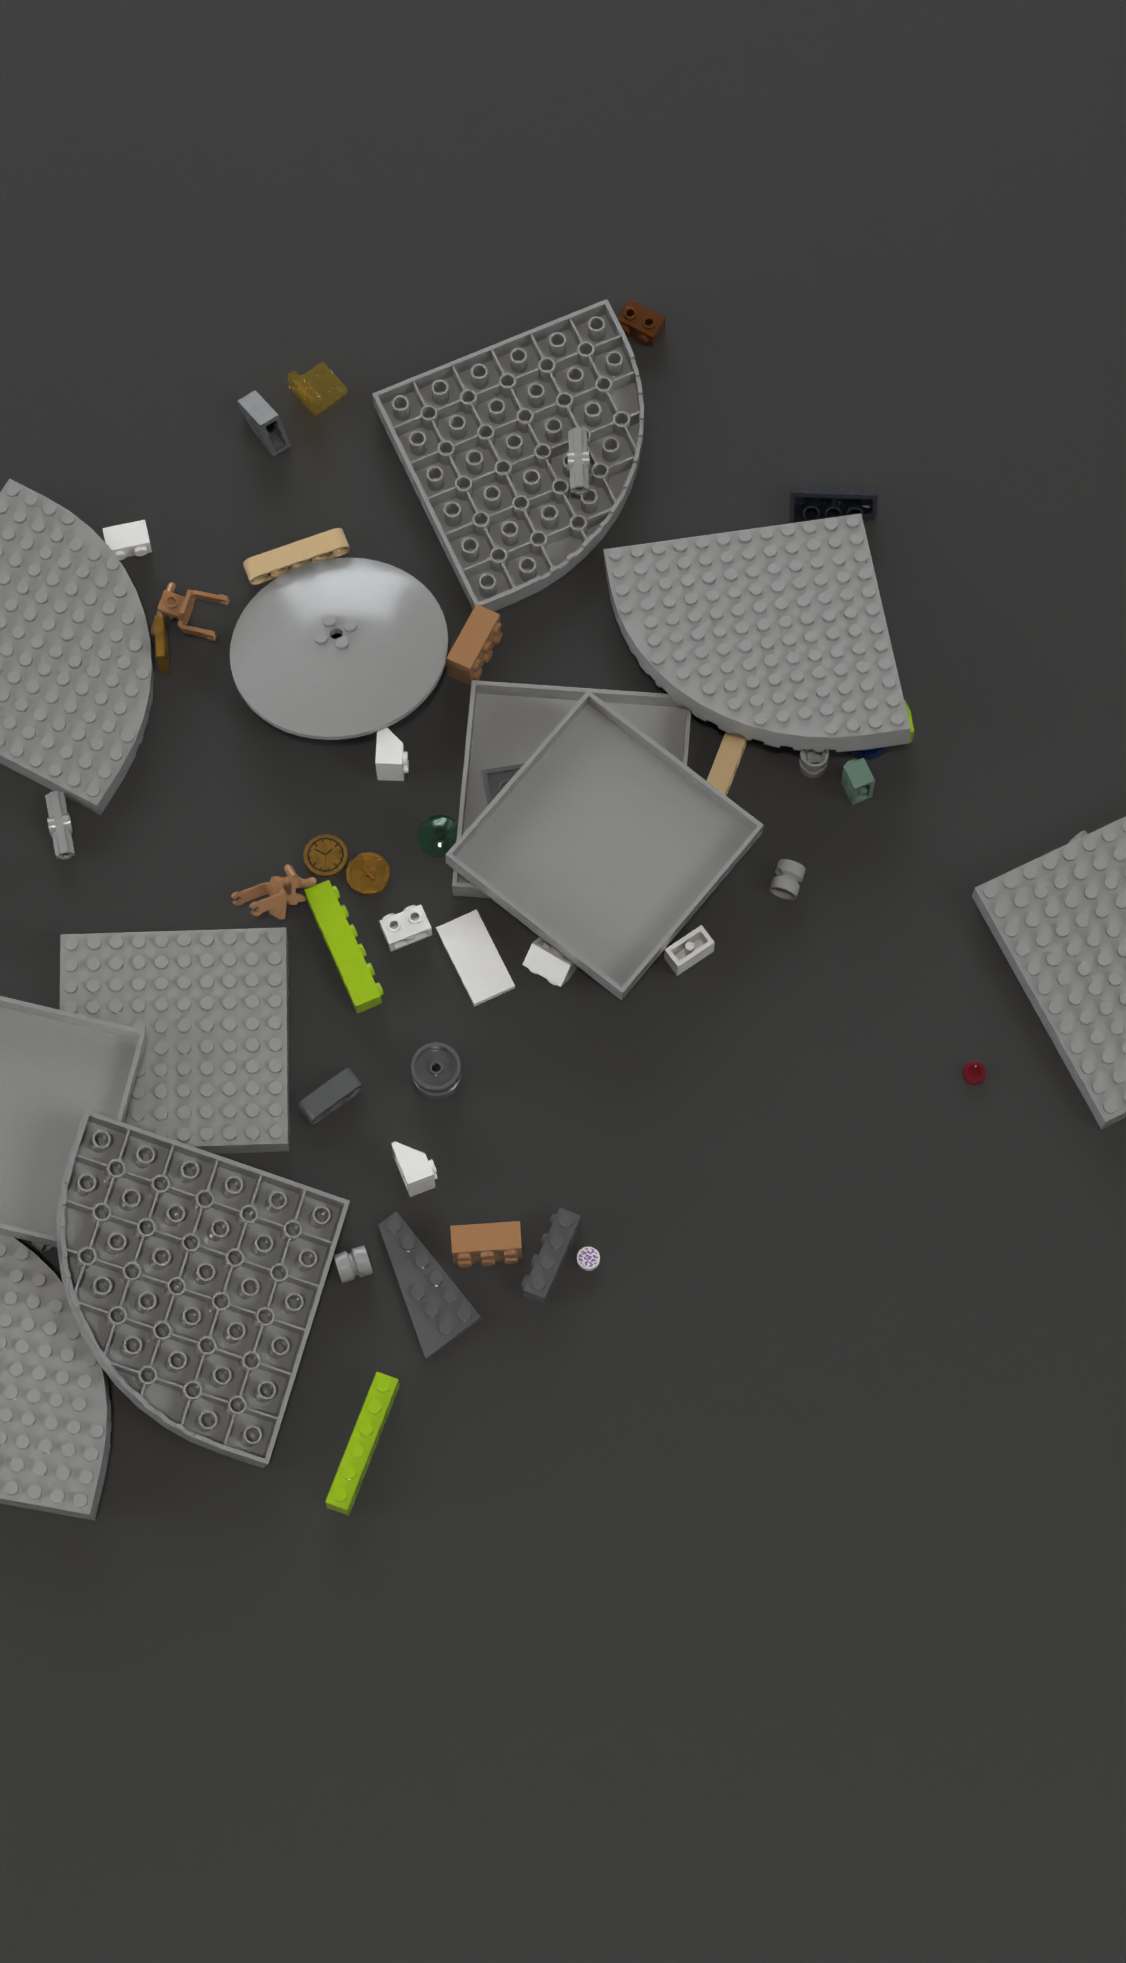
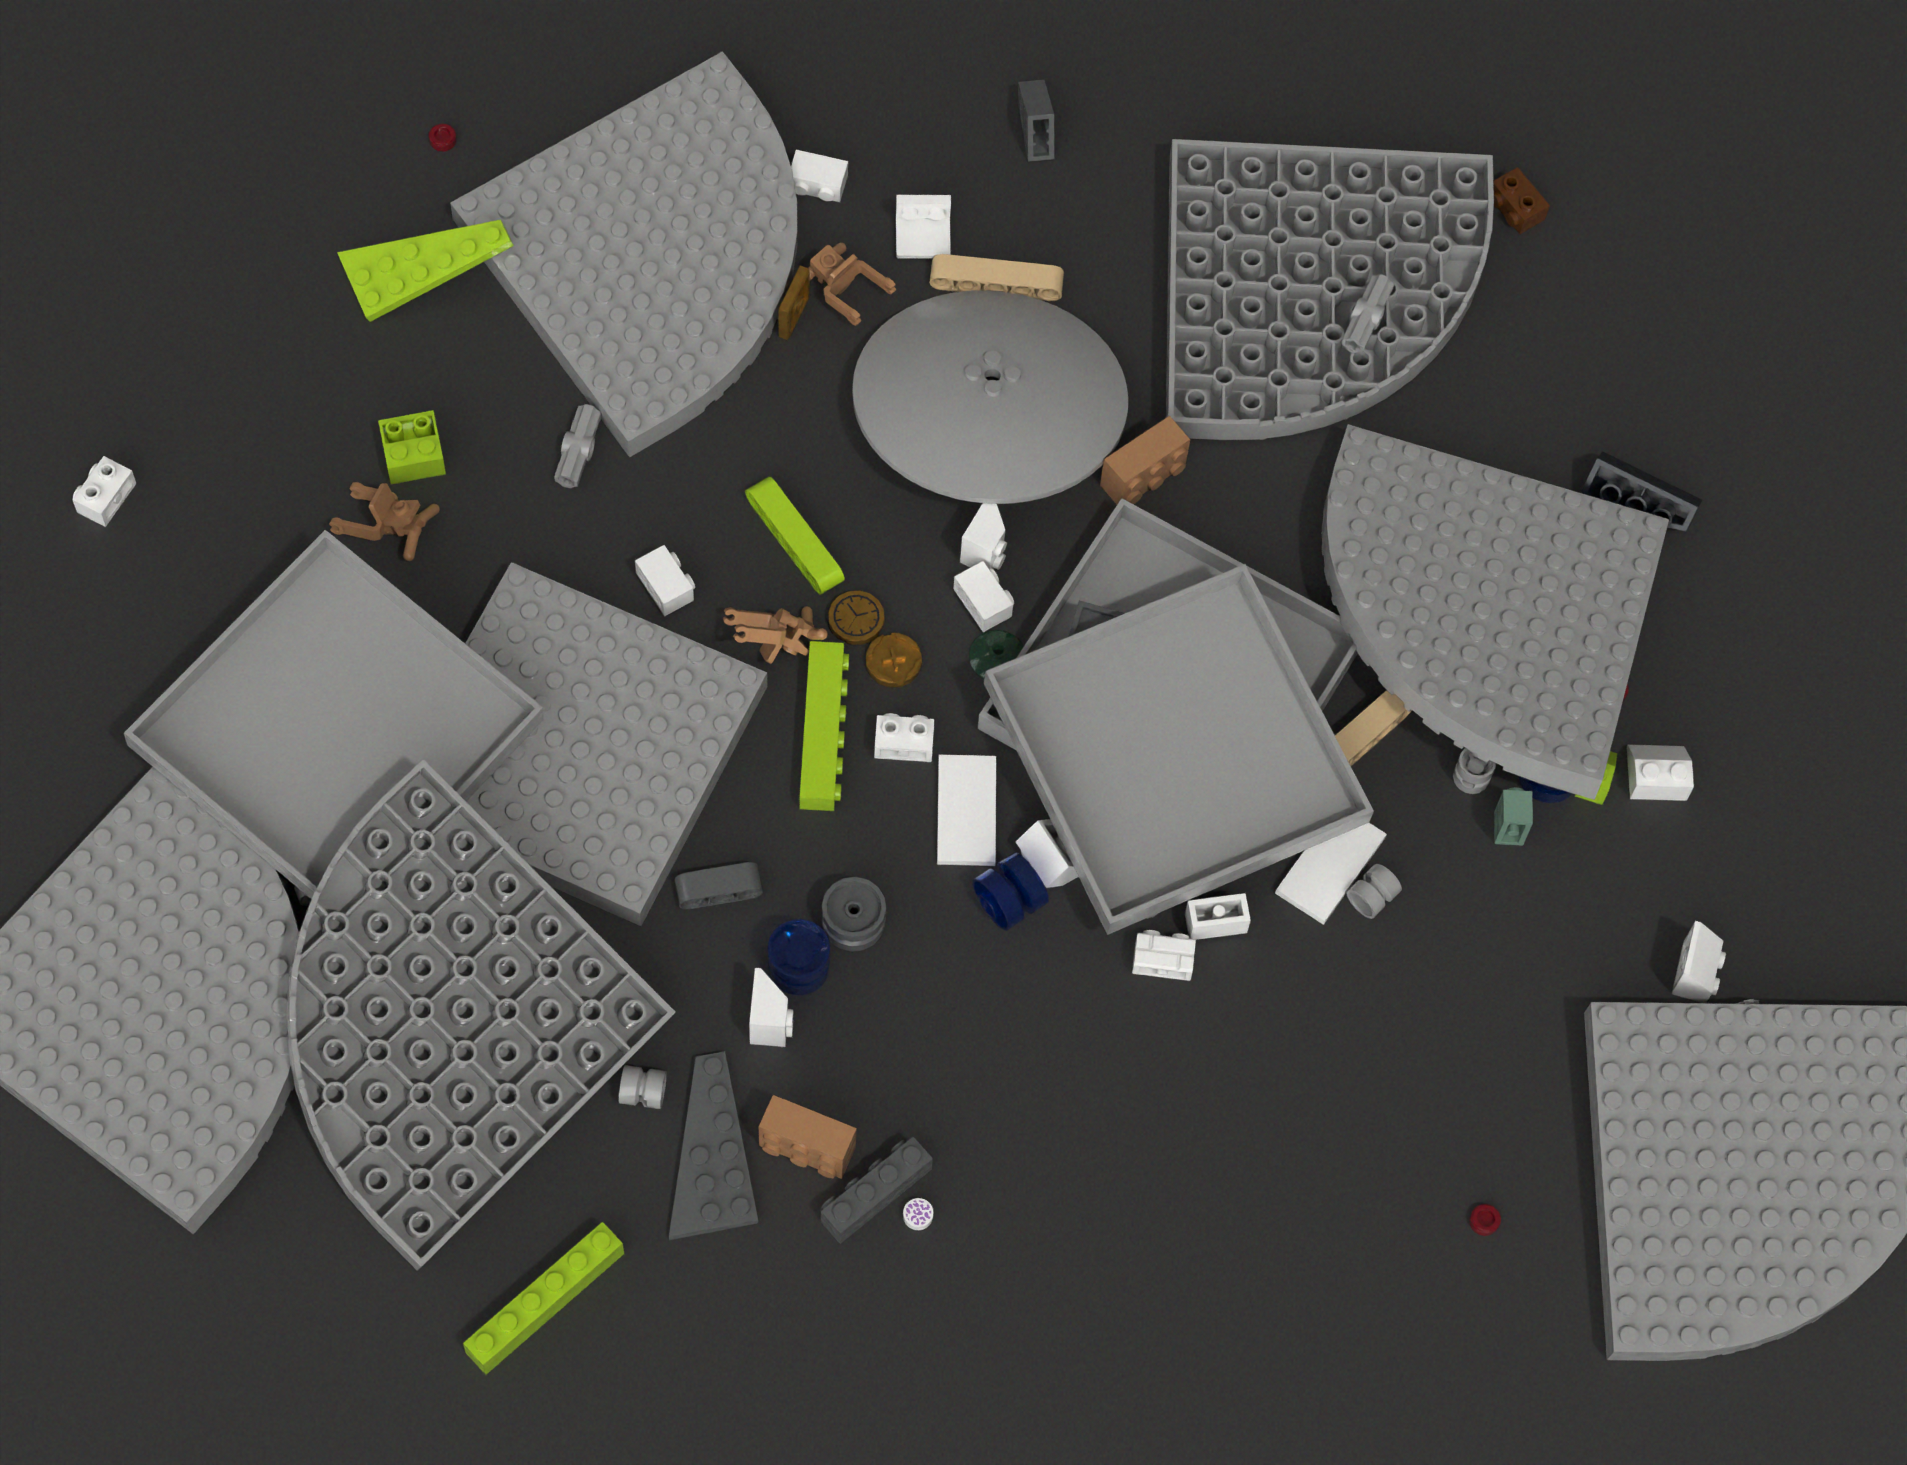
camera: 20 degrees right, 5 degrees down
(176, 894) = (665, 580): none -> white brick
(223, 543) = (922, 225): none -> white bracket
(251, 816) = (794, 535): none -> lime beam
(317, 388) = (1116, 109): clear yellow bracket -> none
(409, 797) = (983, 596): none -> white brick
(414, 1119) = (798, 957): none -> clear blue wheel
(538, 1001) = (1010, 891): none -> clear blue wheel
(665, 995) = (1164, 955): none -> white brick
(747, 883) = (1329, 870): none -> white tile
(940, 699) = (1659, 772): none -> white slope
(1033, 825) = (1699, 964): none -> white slope

